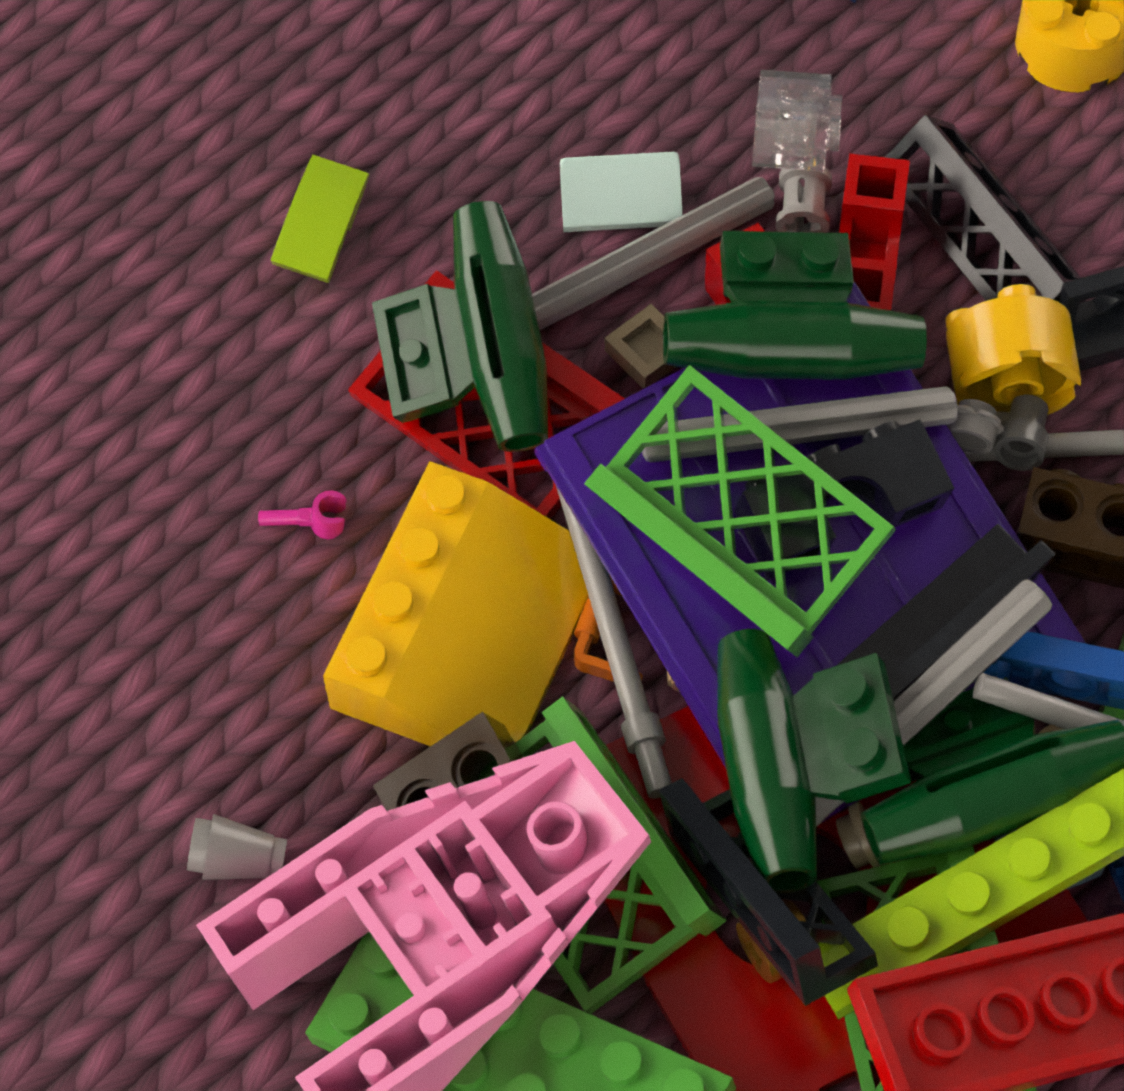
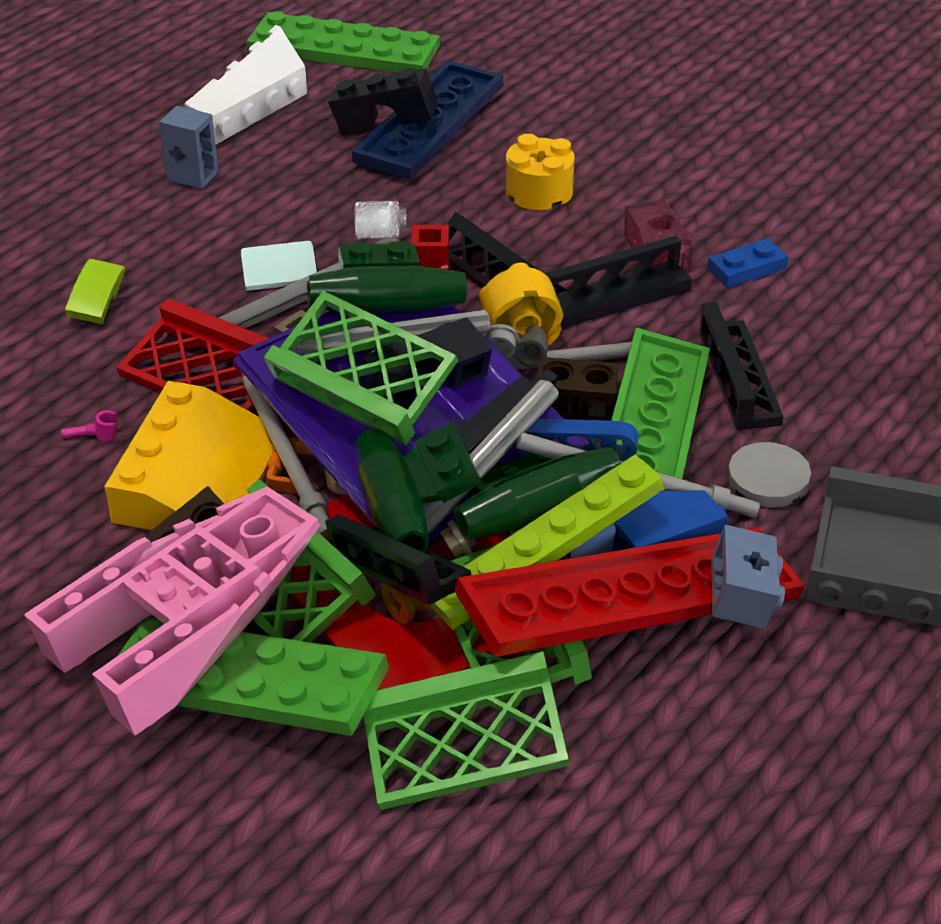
camera: 10 degrees left, 20 degrees down
(233, 850) = (39, 586): light grey cone -> none
(471, 336) = (198, 319): dark green plate -> none

